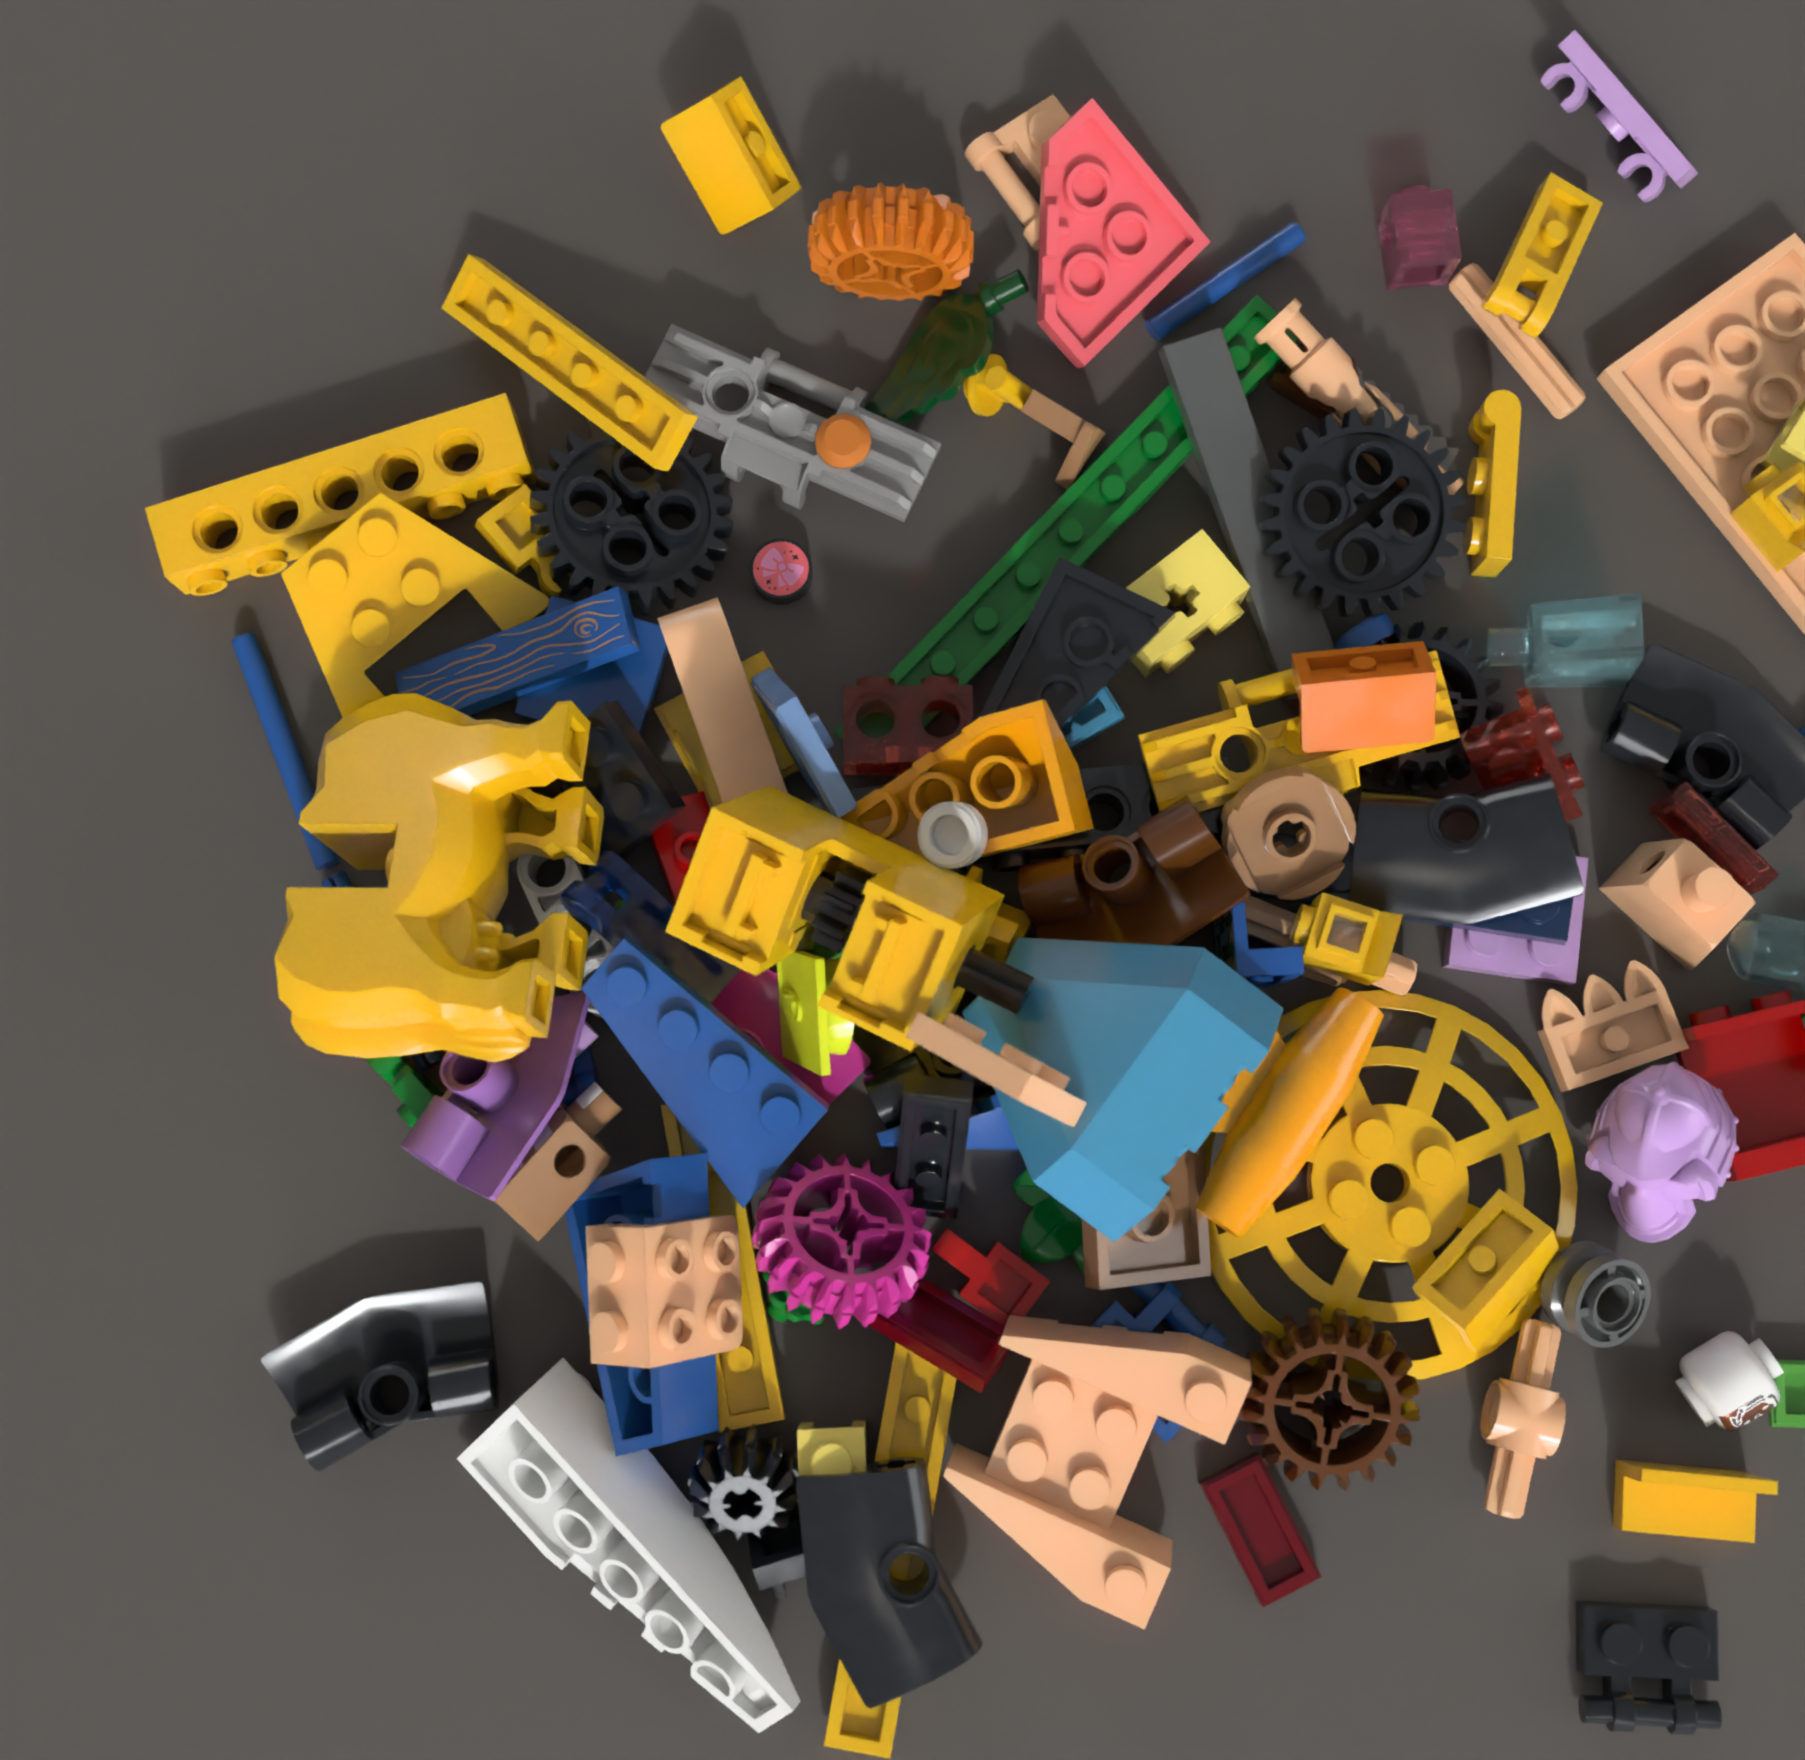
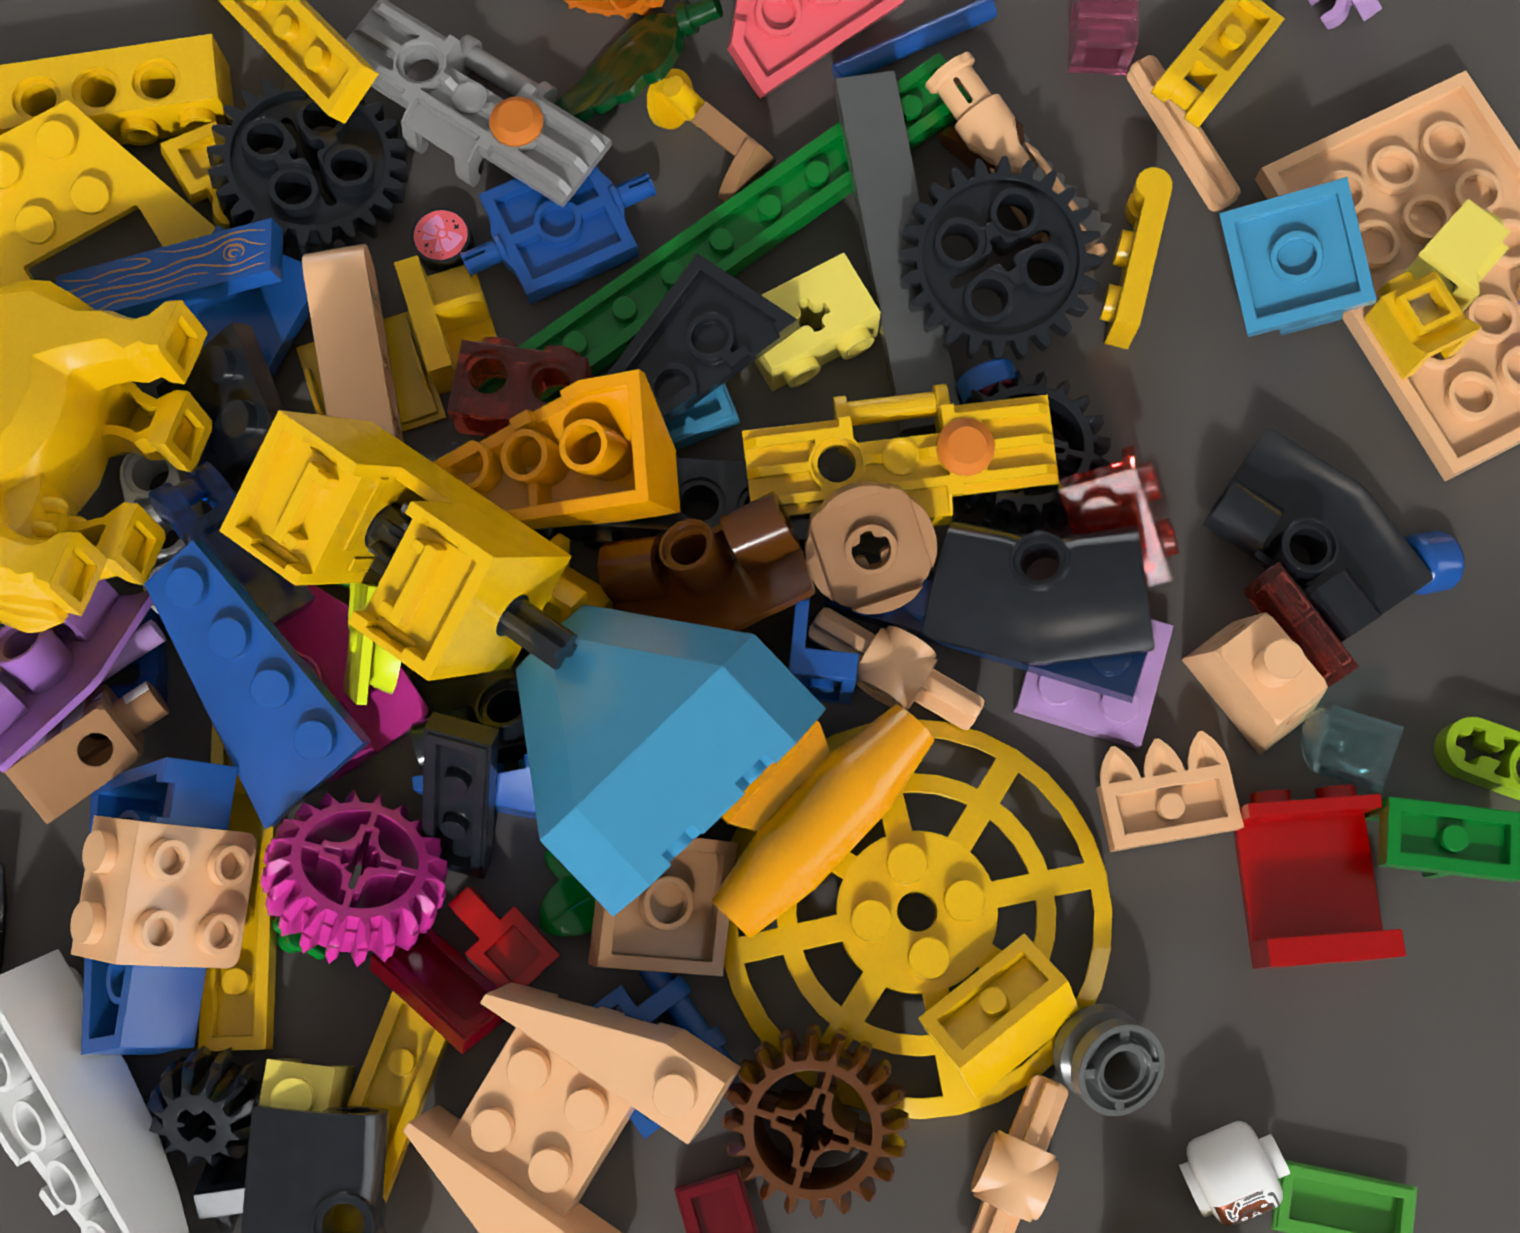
camera: 10 degrees right, 5 degrees down
(805, 740) = (416, 386): medium blue plate -> none
(807, 653) = (443, 313): none -> yellow panel
(896, 561) = (554, 244): none -> blue plate
(952, 834) = (532, 490): white tile -> none
(1008, 1071) = (512, 710): light nougat plate -> none
(1346, 938) = (907, 656): yellow window -> none
(1365, 696) = (964, 424): orange panel -> none
(1597, 636) = (1189, 414): clear light blue torso -> none
(1660, 467) = (1298, 259): none -> dark azure panel
(1661, 1146) = (1200, 917): lavender head -> none

